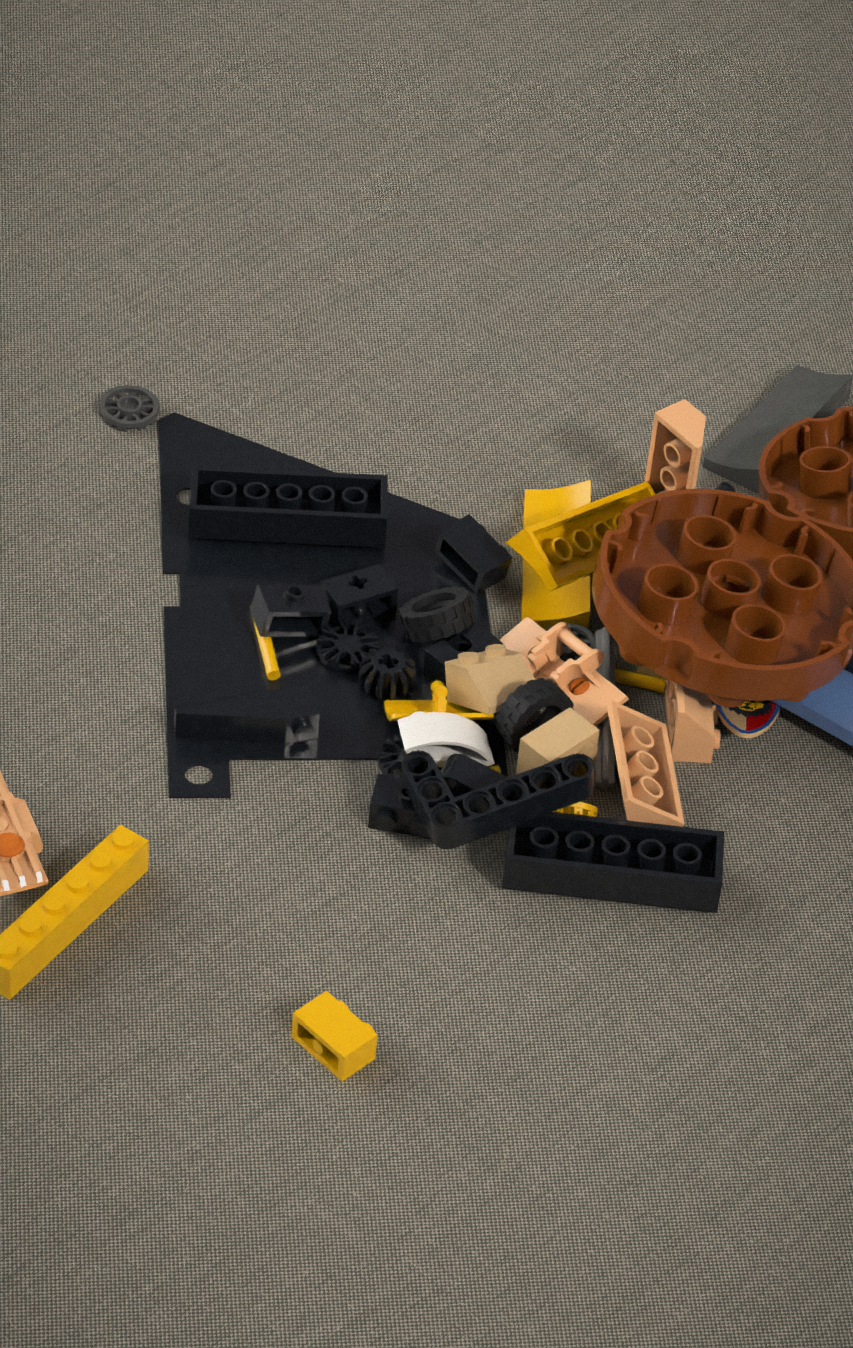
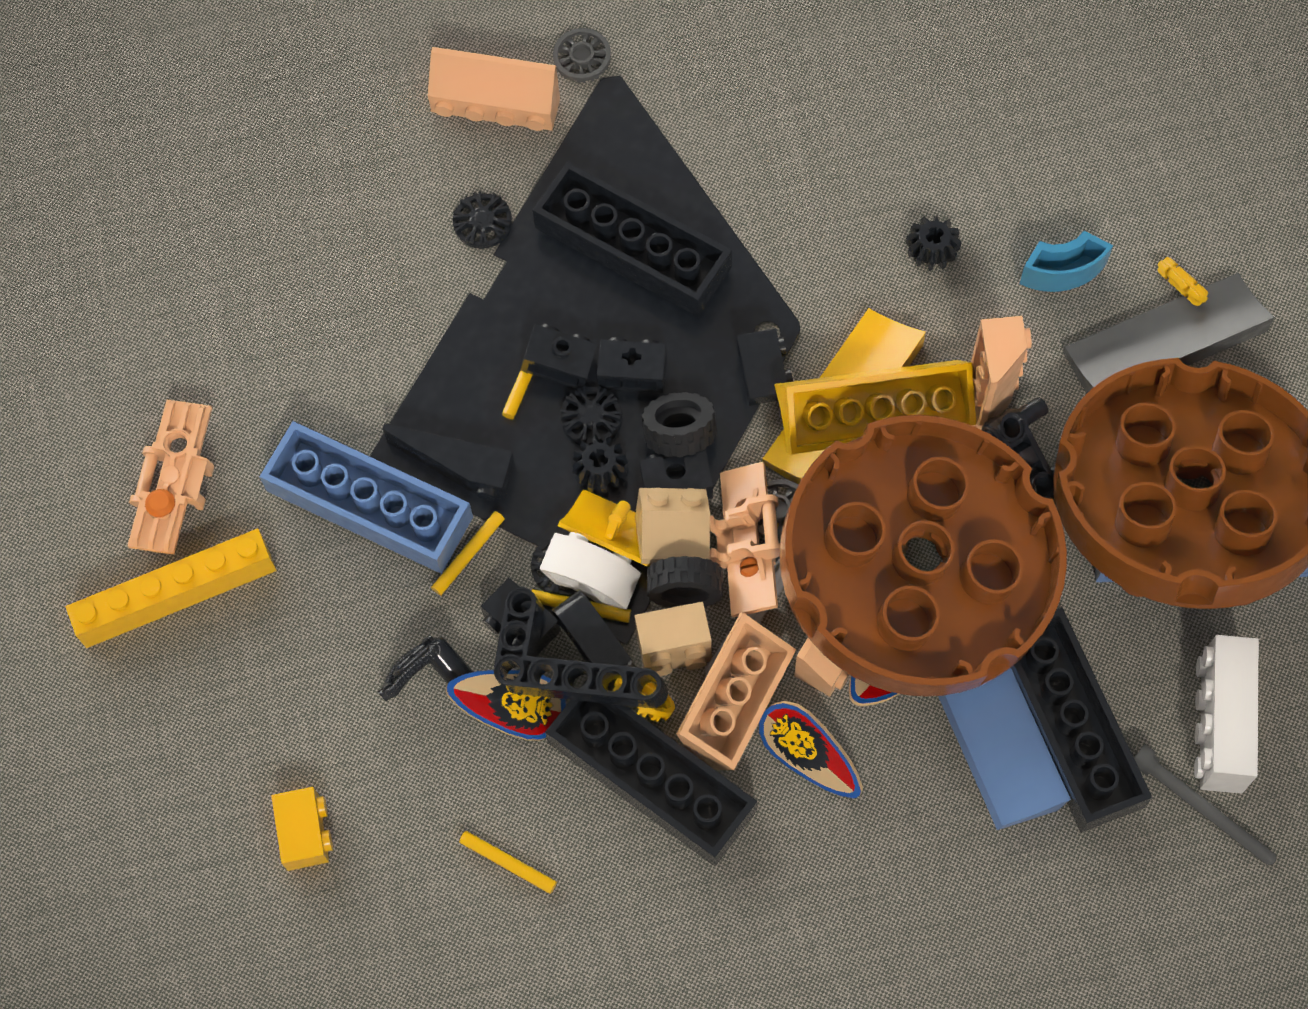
camera: 40 degrees right, 25 degrees up
(75, 446) = (493, 89): none -> light nougat slope
(133, 550) = (482, 220): none -> black wheel
(199, 769) = (367, 497): none -> medium blue brick
(318, 784) = (467, 553): none -> yellow bar
(355, 854) = (432, 651): none -> black piece
(461, 868) = (510, 713): none -> shield
(537, 985) = (508, 862): none -> yellow bar
(542, 427) = (921, 242): none -> black gear
(667, 389) = (1065, 265): none -> dark azure brick
(730, 791) = (808, 748): none -> shield
(761, 382) = (1182, 281): none -> yellow axle

